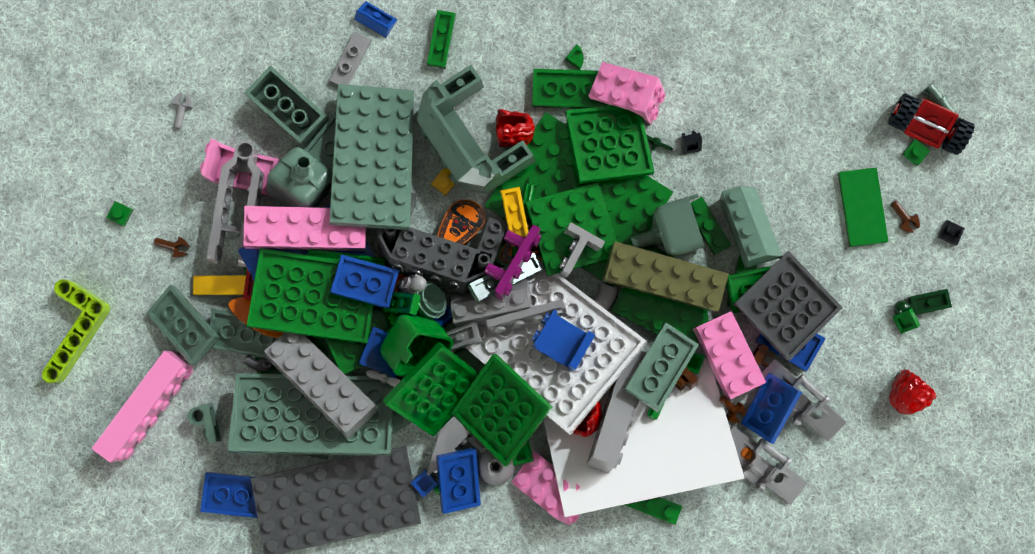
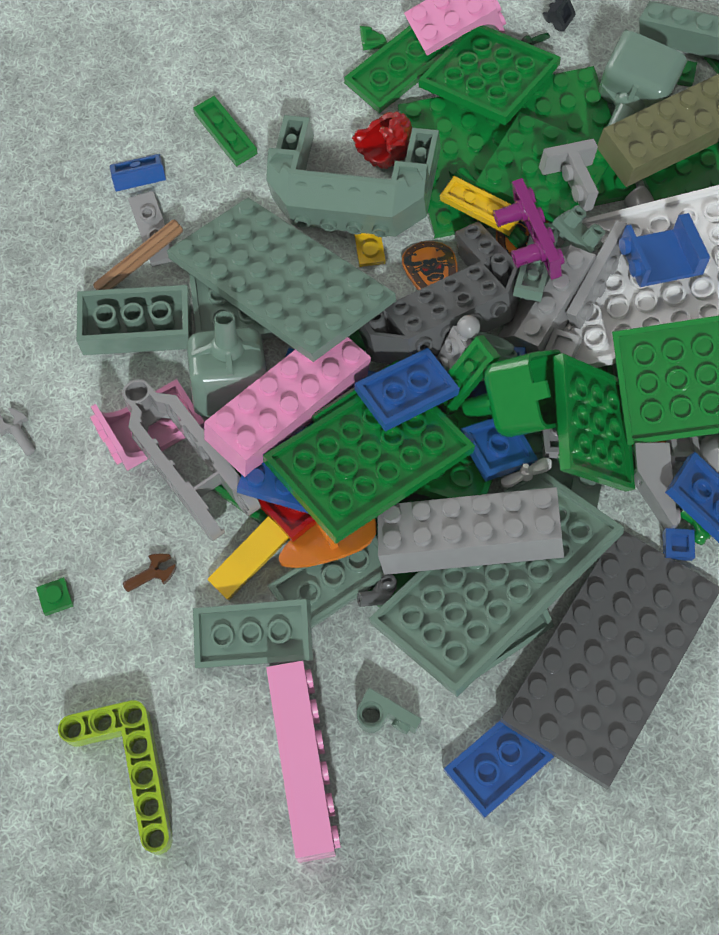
camera: 45 degrees left, 15 degrees down
(324, 72) = (139, 256): none -> medium nougat axle
(541, 283) = (576, 233): none -> sand green hips

